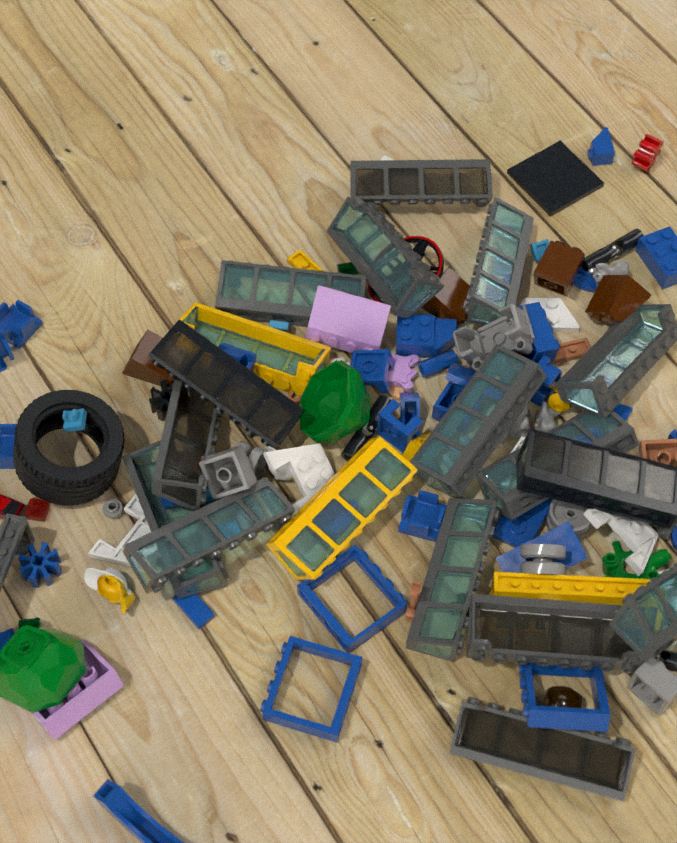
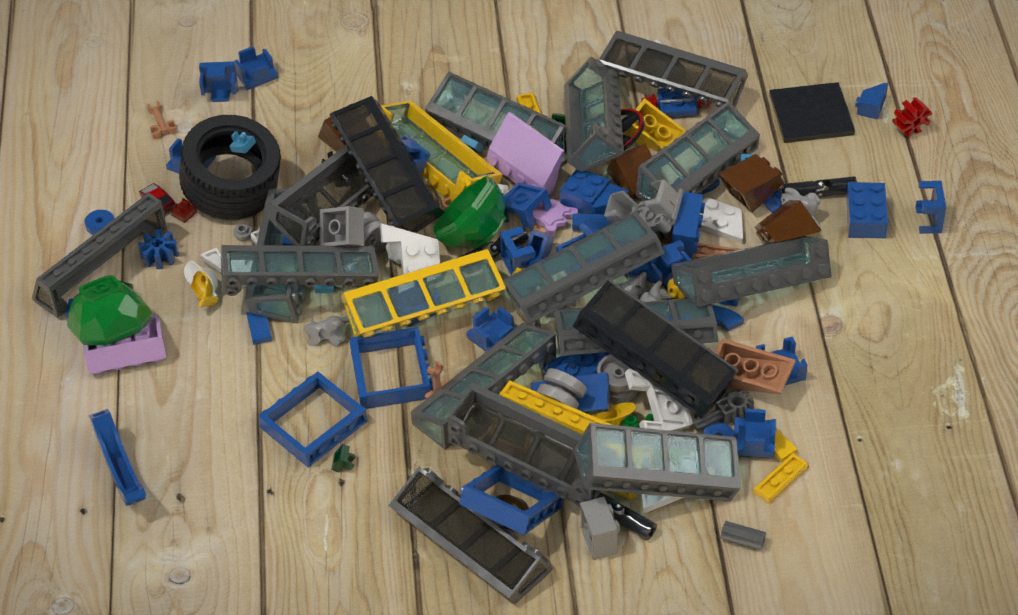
camera: 30 degrees right, 10 degrees down
(269, 581) = (329, 329): none -> light grey animal
(367, 719) = (341, 458): none -> dark green tile
(432, 215) = (675, 103): none -> blue plate
(449, 244) = (658, 128): none -> yellow slope
(596, 551) = (616, 413): none -> yellow piece

